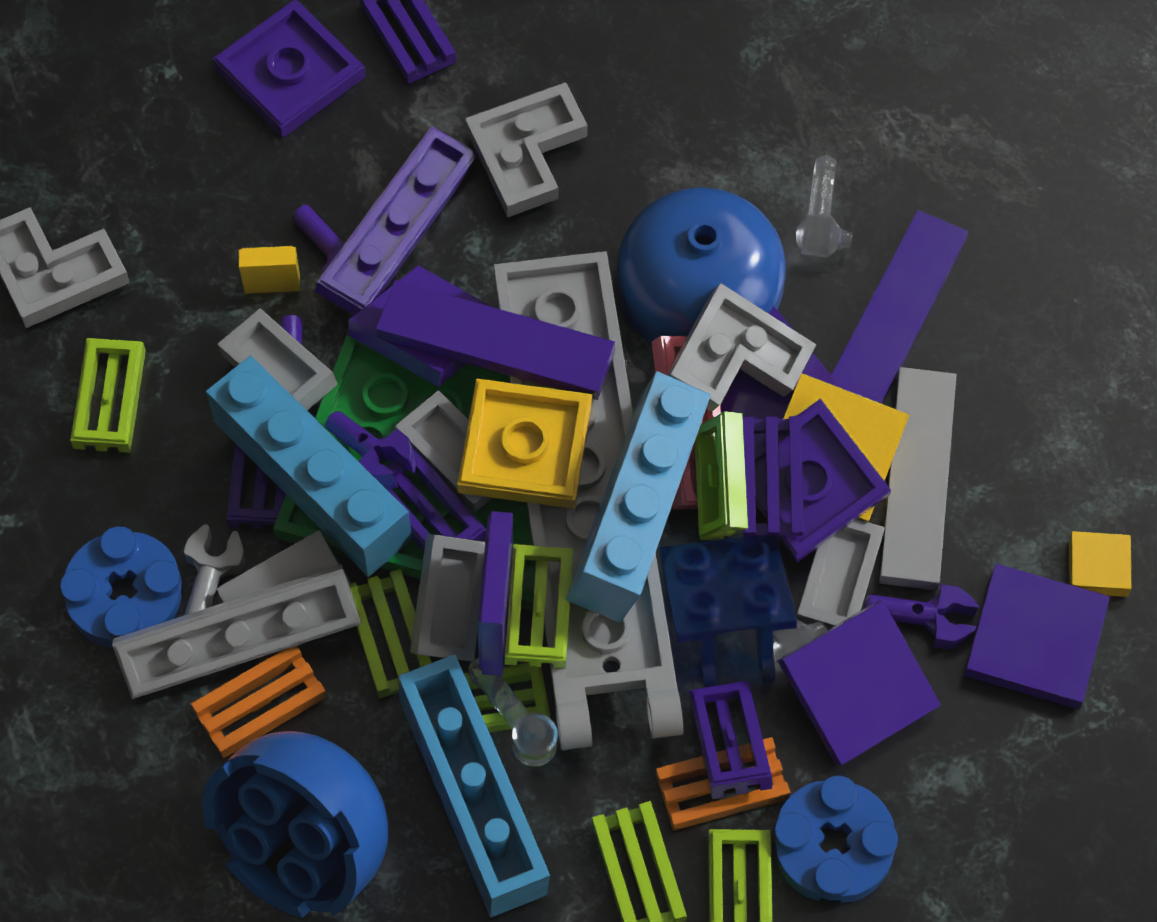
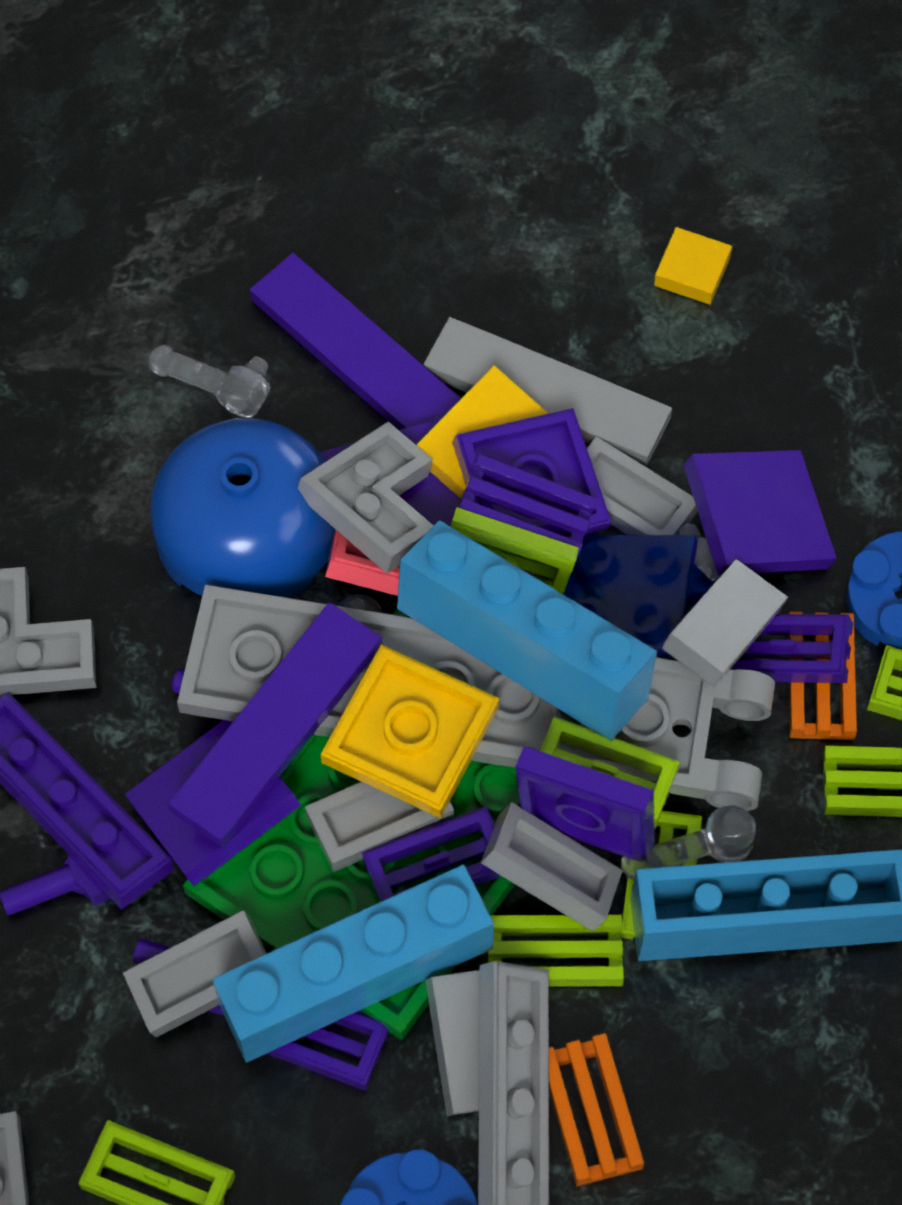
camera: 70 degrees left, 0 degrees up
(211, 568) = (420, 1123): light grey bar -> none
(269, 269) = (72, 951): yellow tile -> none
(304, 792) = (747, 1064): blue cylinder -> none
(391, 448) = (354, 894): dark purple bar -> none
(720, 668) = (724, 623): none -> light grey tile
(932, 614) = (696, 430): dark purple bar -> none
(1037, 636) = (750, 345): dark purple tile -> none

